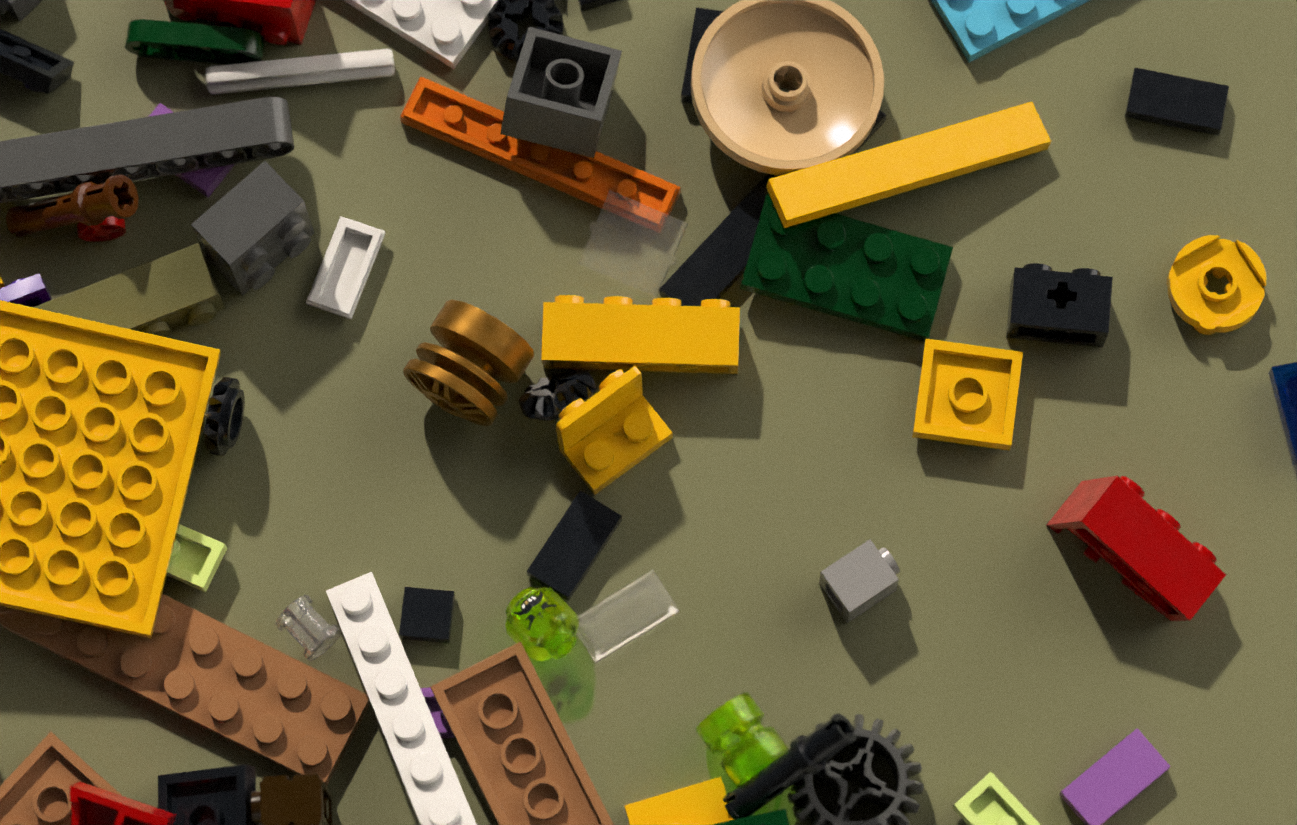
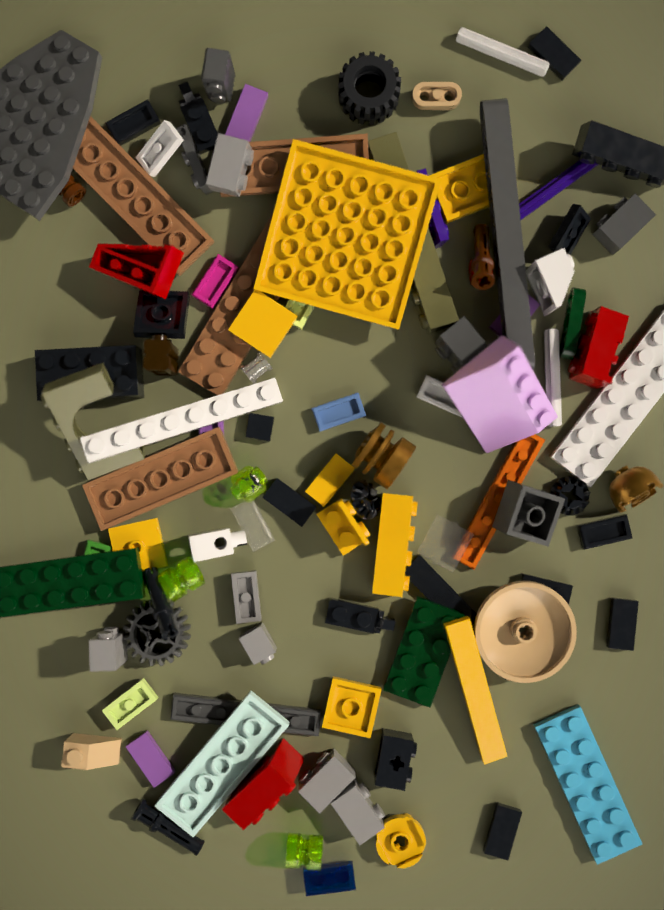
camera: 95 degrees right, 15 degrees up
(116, 79) = (551, 279): none -> white slope
(135, 727) = (215, 281): none -> dark pink tile
(218, 616) = (262, 323): none -> yellow tile
(224, 416) = (366, 330): black gear -> none
(342, 151) = (500, 396): none -> lavender slope
(388, 464) = (338, 412): none -> medium blue tile
(524, 470) = (330, 480): none -> yellow tile
(666, 679) = (204, 548): none -> white torso
(769, 612) = (246, 597): none -> light grey plate
(790, 398) = (357, 616): none -> black hinge
(1005, 600) = (216, 710): none -> dark grey tile
(1104, 631) = (222, 763): none -> light aqua plate
(1113, 429) = (326, 780): none -> light grey brick
(1166, 366) = (359, 812): none -> light grey brick
(1237, 757) = (158, 822): none -> black pin
(1257, 463) = (310, 858): none -> clear neon green wheel

